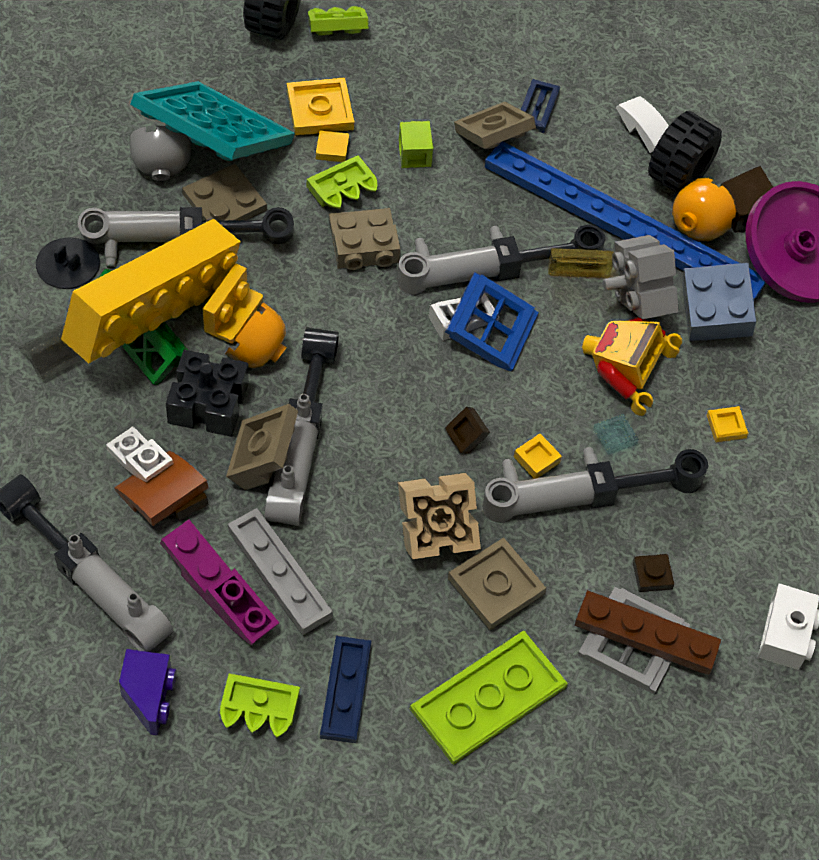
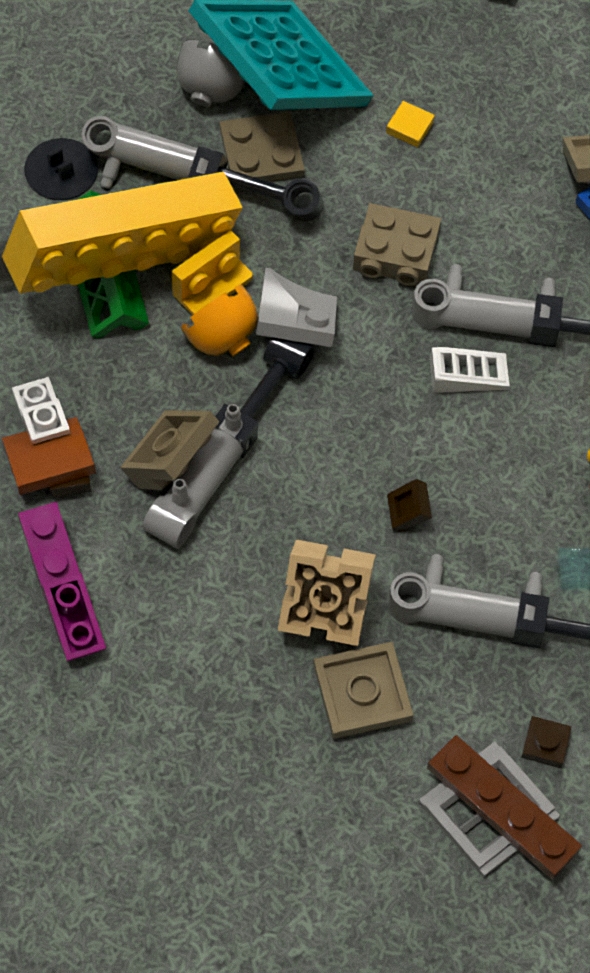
camera: 25 degrees right, 5 degrees up
(207, 393) = (142, 366): black brick -> none
(259, 702) = (47, 726): lime plate -> none
(280, 571) = (133, 592): light grey plate -> none
(312, 311) = (295, 312): none -> light grey plate
(320, 106) = (416, 72): yellow plate -> none
(342, 181) = (400, 170): lime plate -> none
(345, 689) = (147, 746): dark blue tile -> none
(415, 144) = (504, 151): lime brick -> none
(468, 307) = (517, 416): blue piece -> none
(488, 697) = (297, 811): lime tile -> none
(537, 456) = (475, 563): yellow plate -> none

